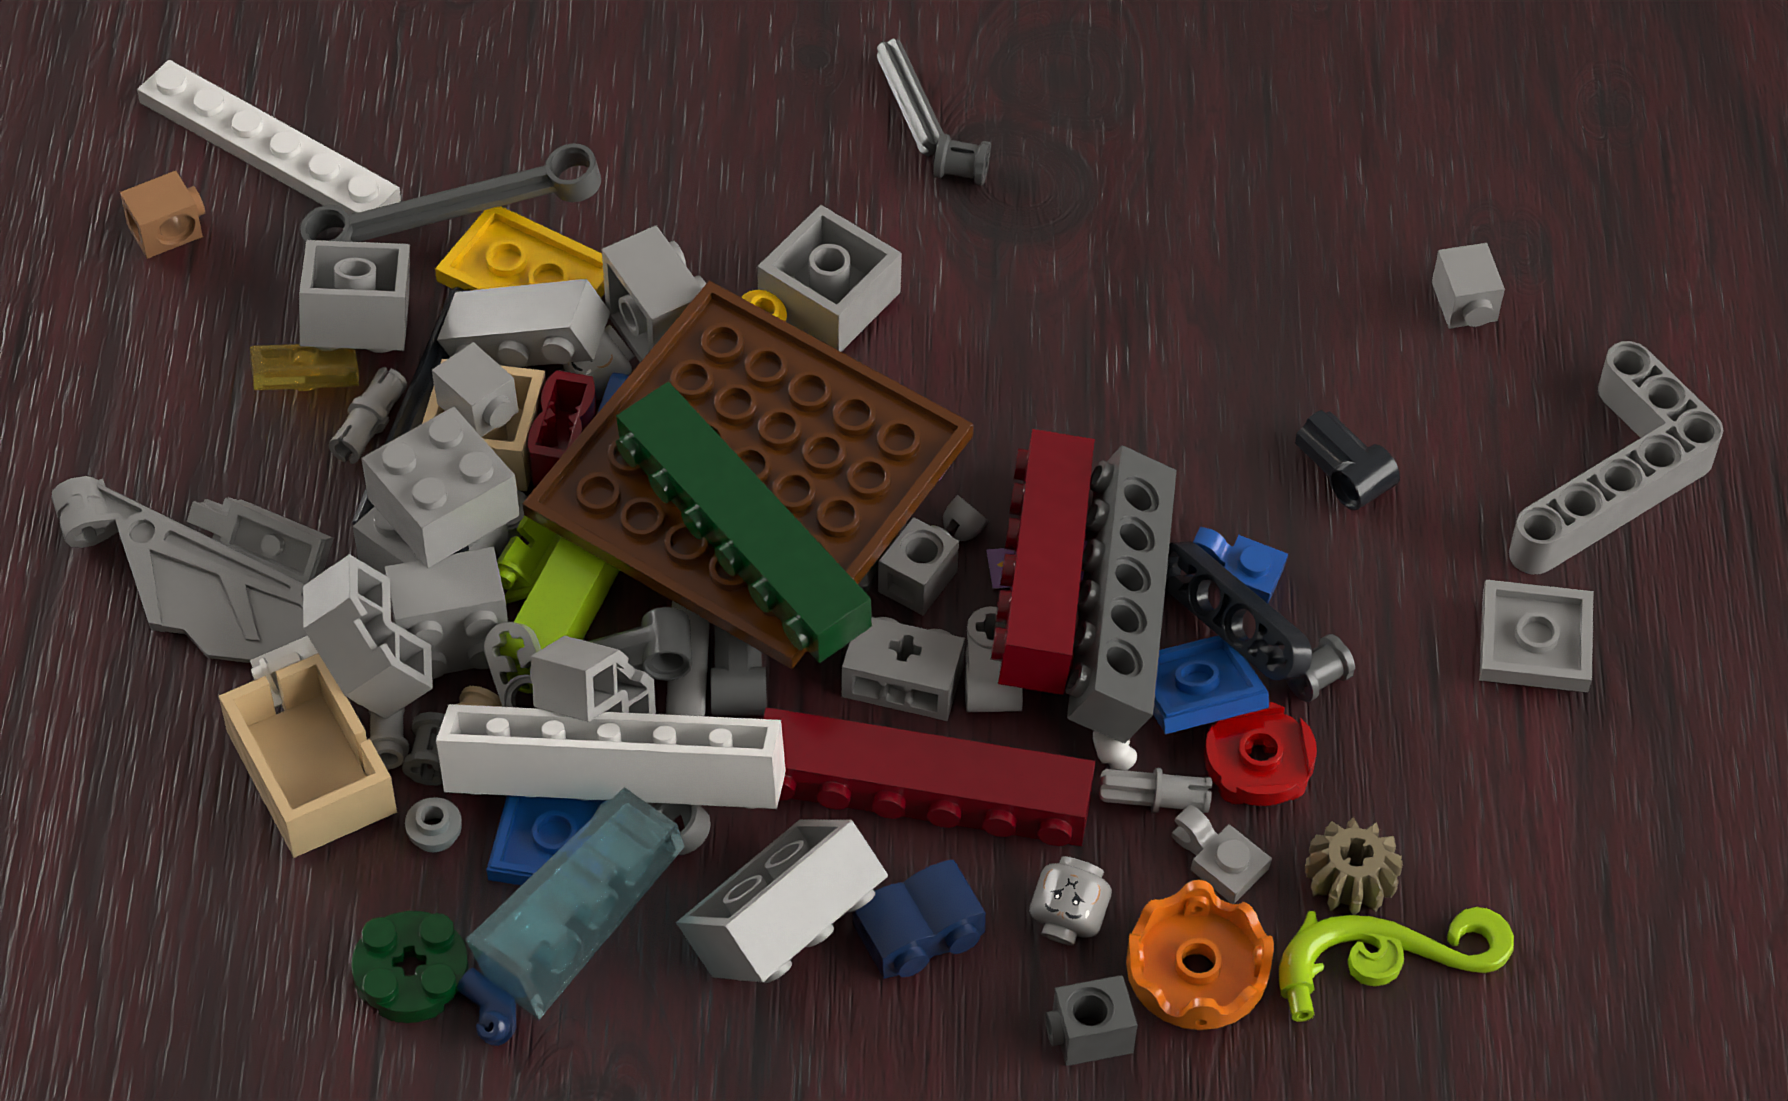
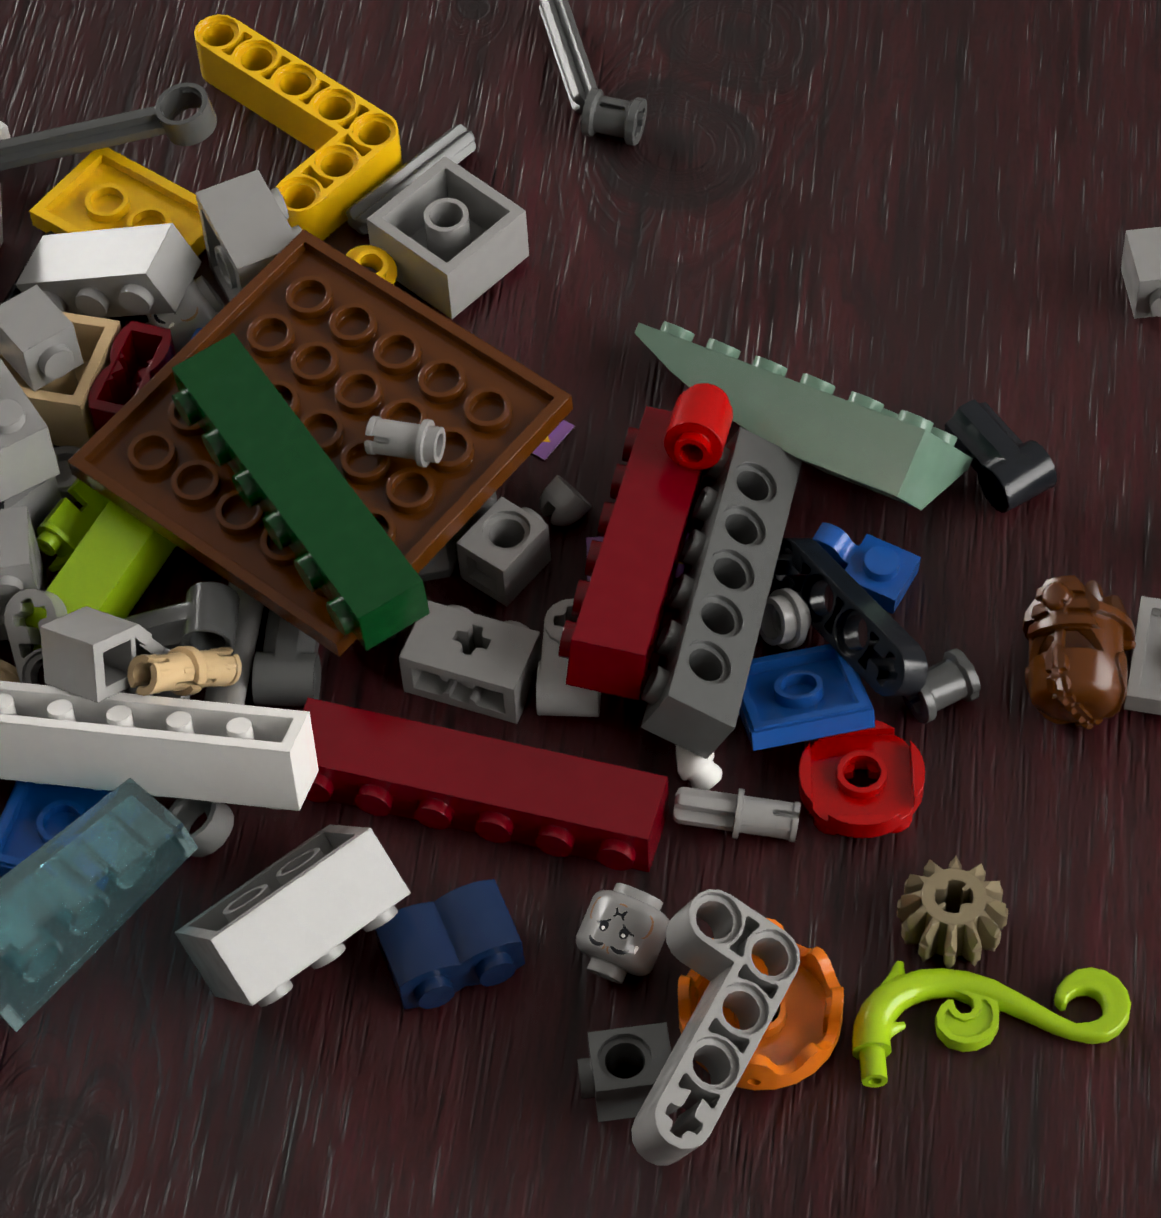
camera: 10 degrees right, 0 degrees up
(656, 689) = (184, 670): none -> tan pin
(725, 187) = (351, 137): none -> yellow beam
(781, 224) = (454, 144): none -> dark grey axle
(832, 471) = (406, 440): none -> light grey pin
(1087, 446) = (699, 427): none -> red brick
(1162, 984) = (708, 1036): none -> light grey beam
(1179, 616) = (785, 619): none -> light grey plate
(1204, 448) = (841, 437): none -> sand green wedge
(1221, 859) = (804, 897): light grey plate -> none
(1437, 633) = (1077, 652): none -> reddish brown helmet

